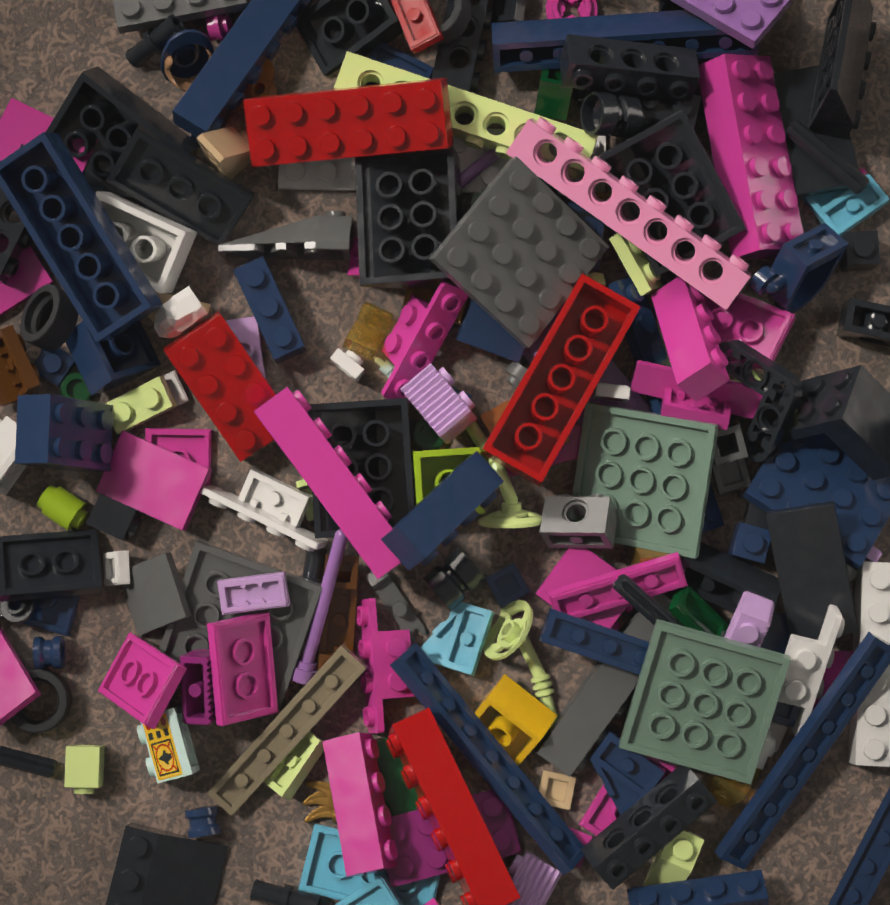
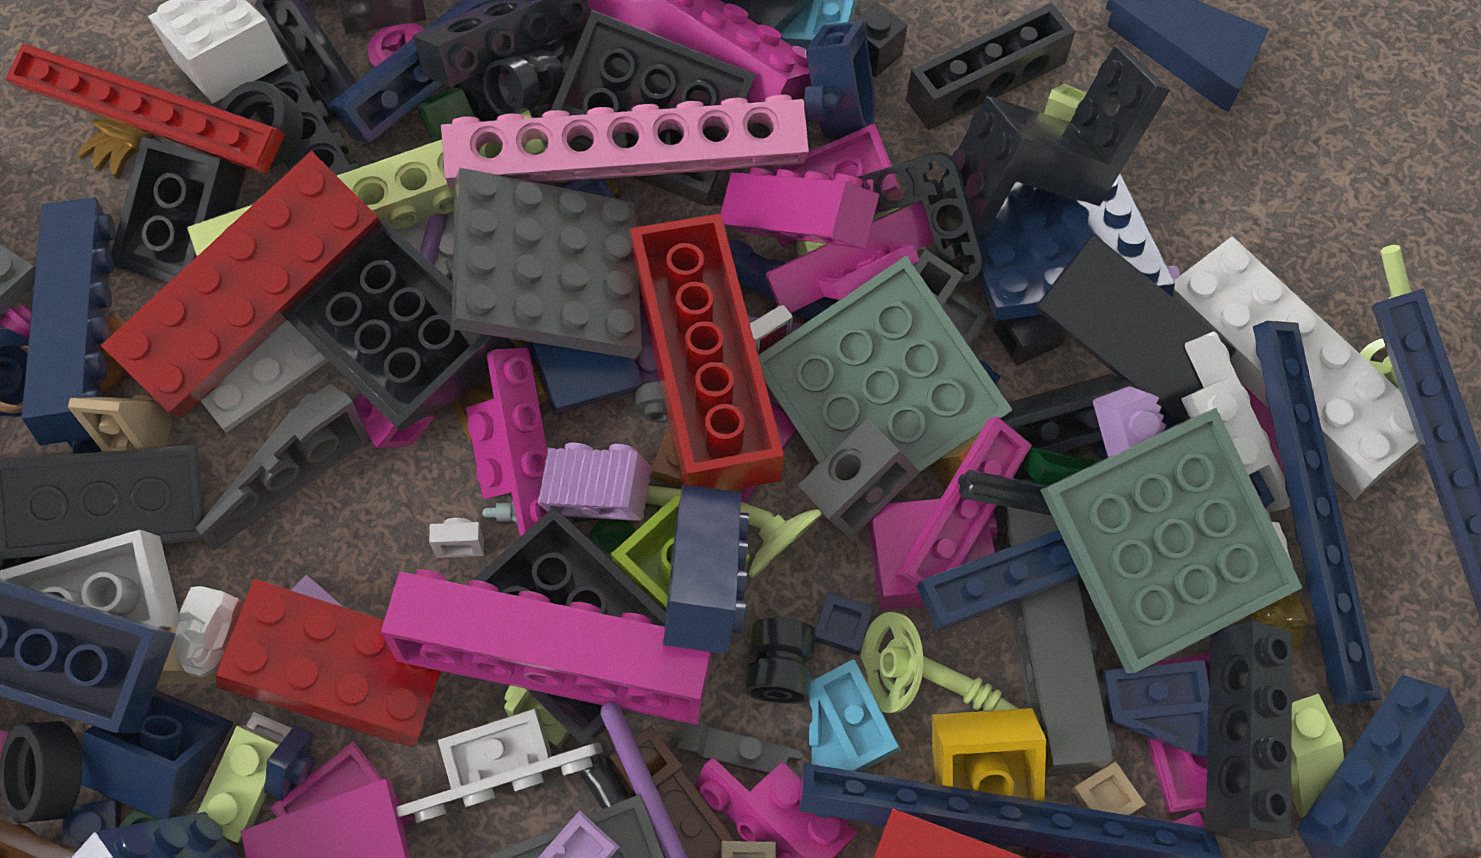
camera: 45 degrees left, 20 degrees down
(171, 417) = (289, 763): none -> dark blue plate
(269, 310) = (334, 557): dark blue arch -> none
(368, 331) = (449, 484): clear yellow bracket -> none
(636, 265) = (658, 199): yellowish green plate -> none
(749, 543) = (1044, 364): dark blue brick -> none

